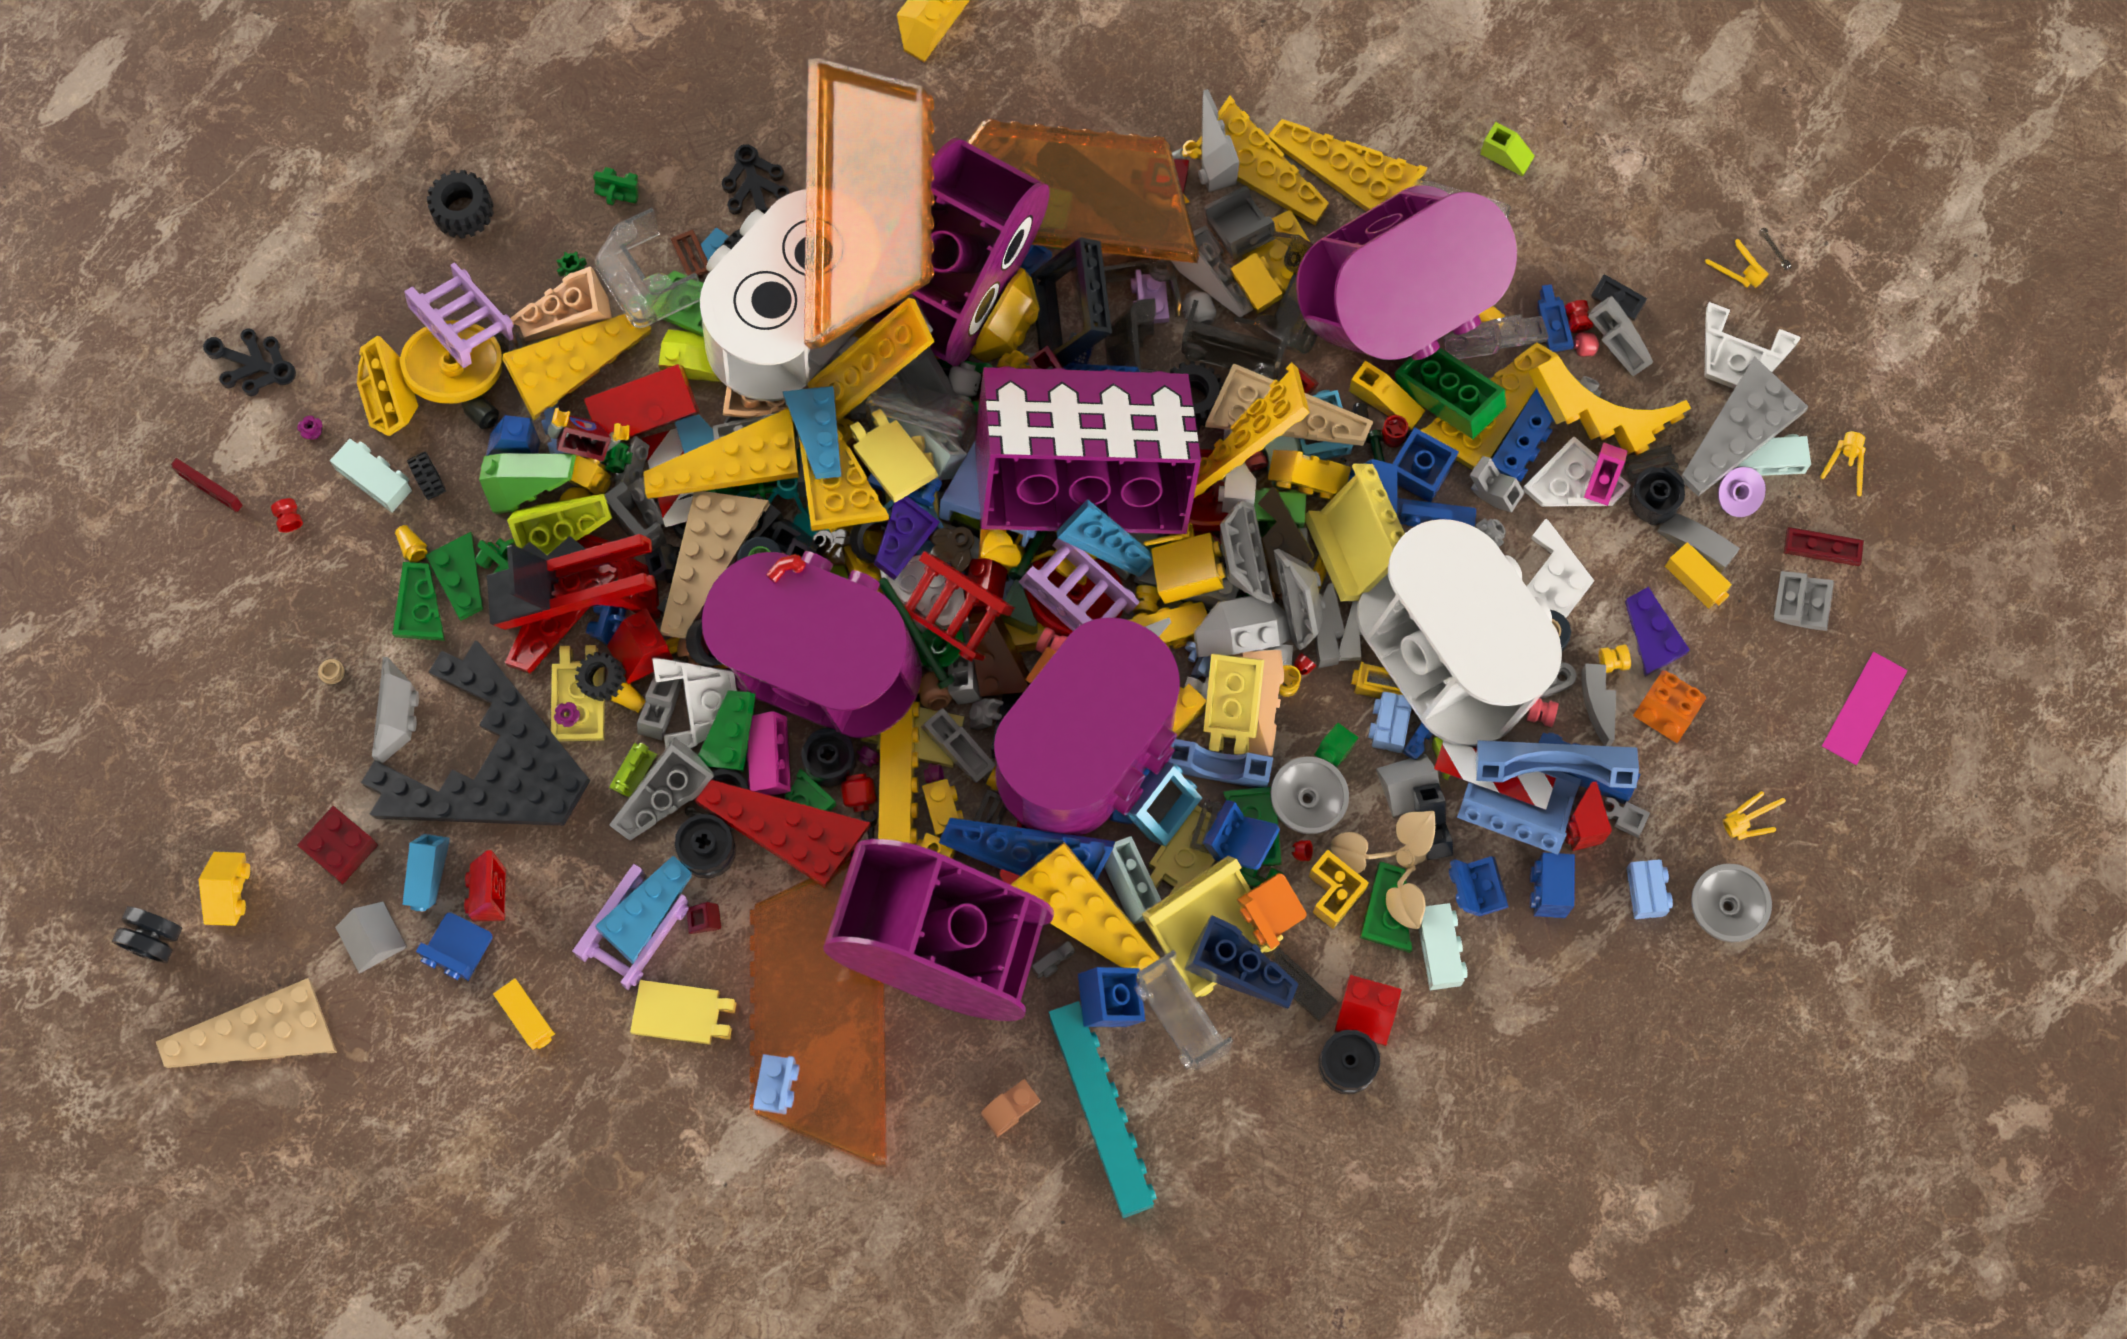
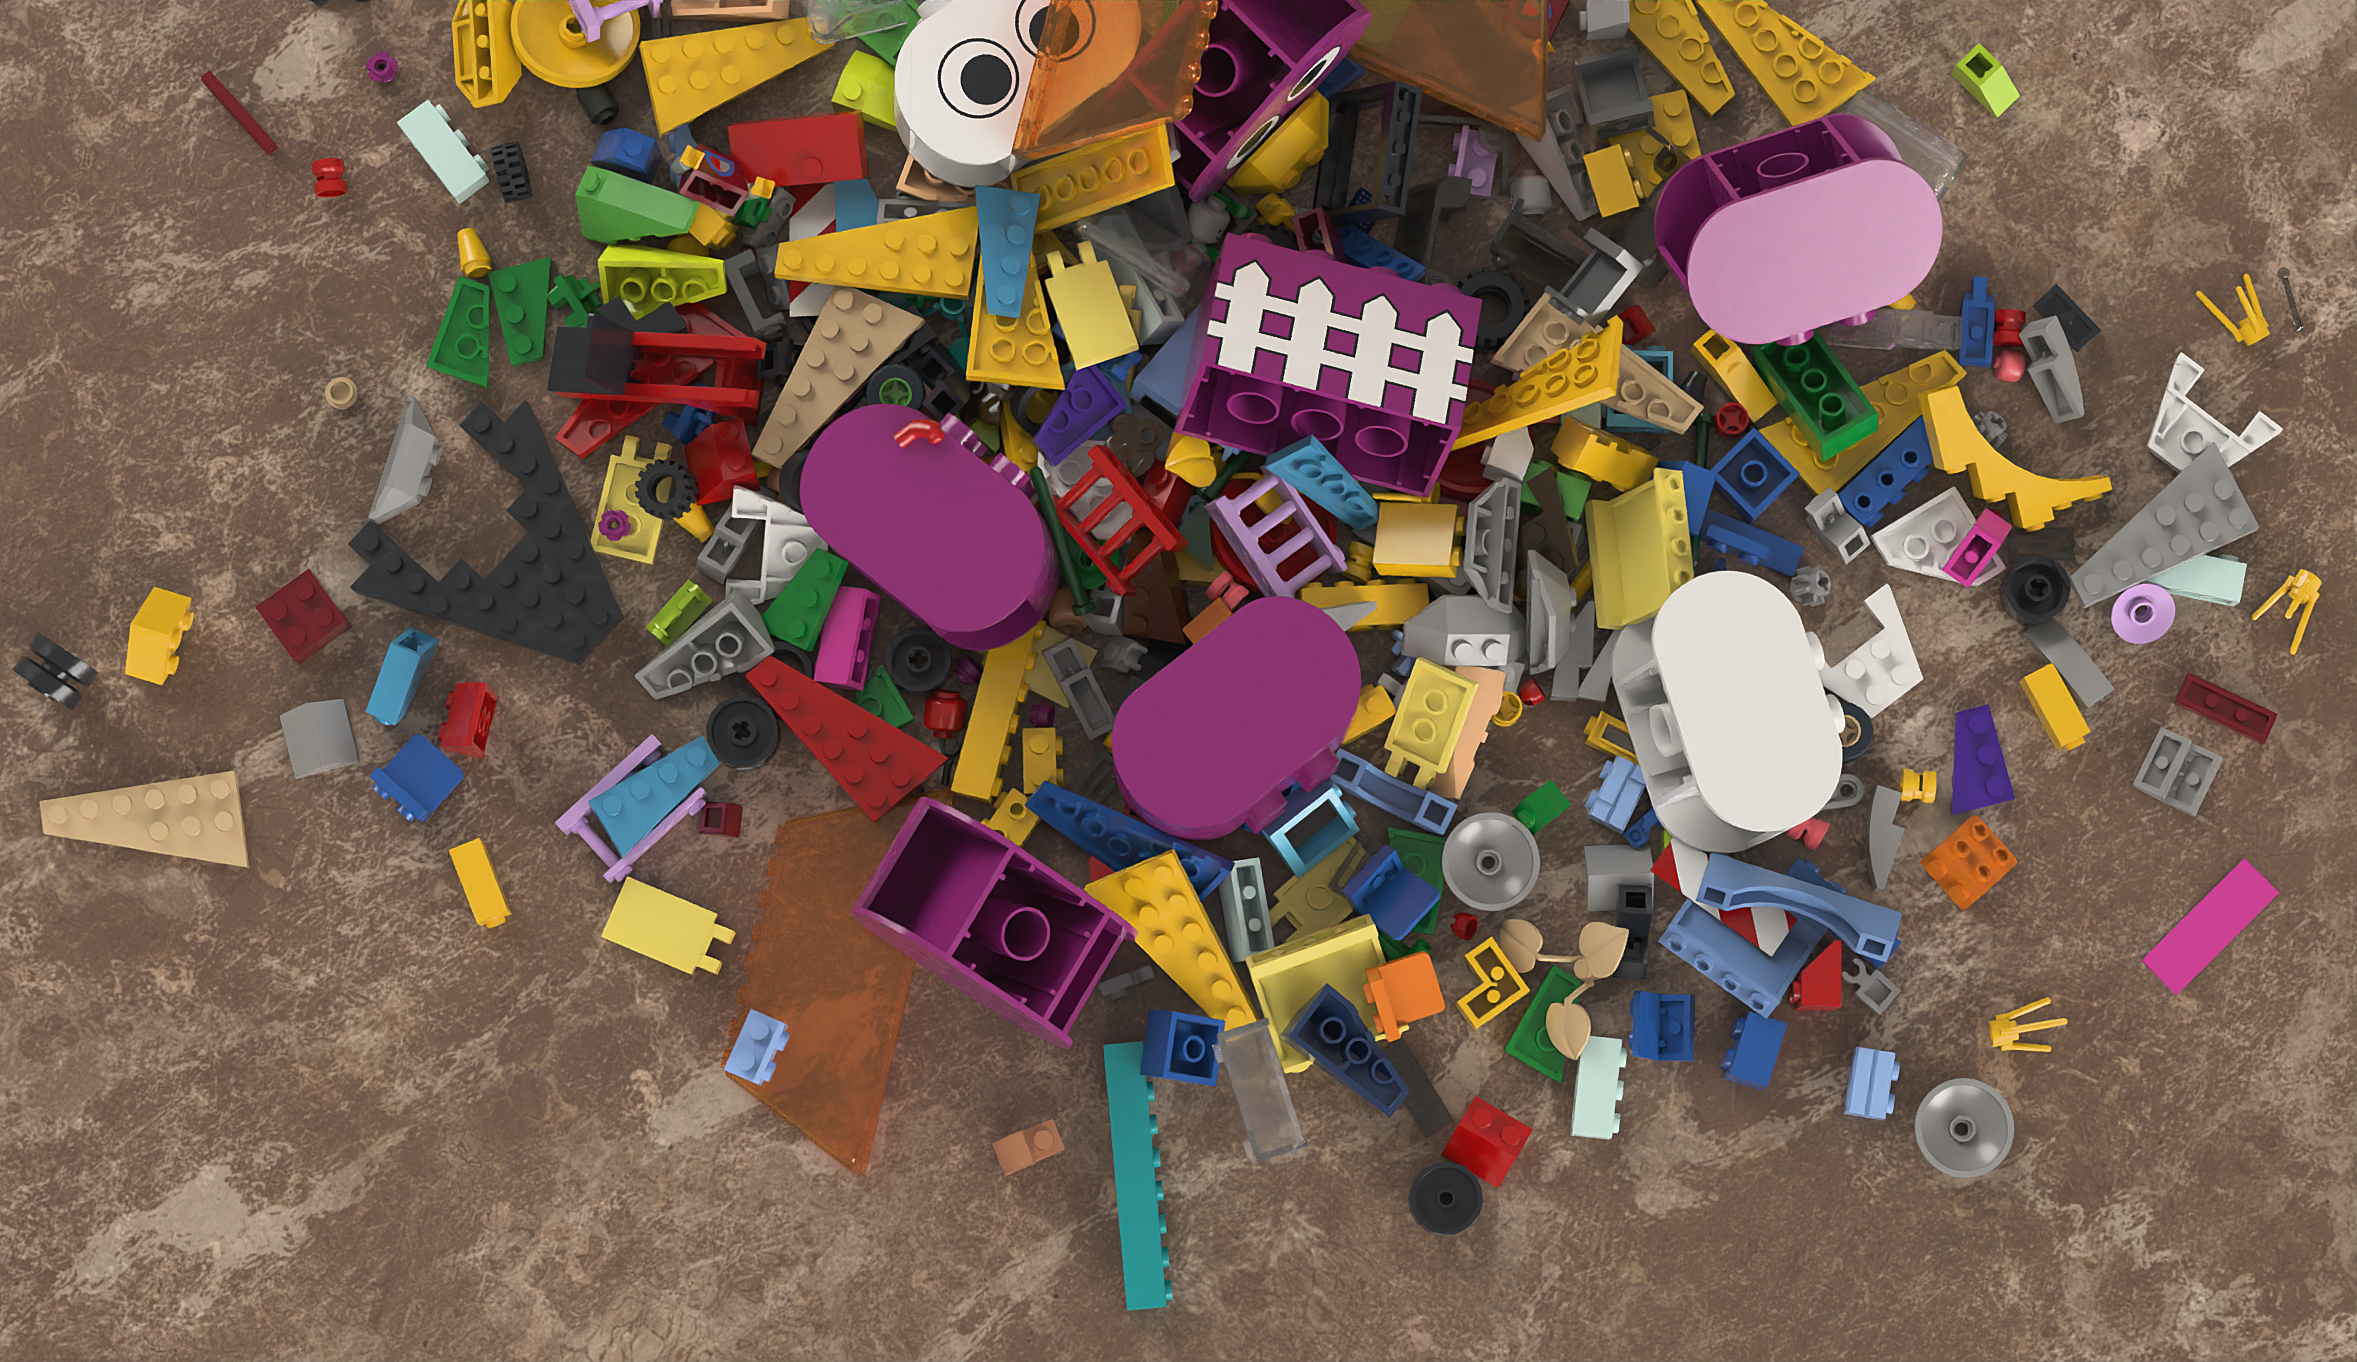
camera: 15 degrees right, 10 degrees up
(1270, 343) = (1596, 282): none -> dark grey panel

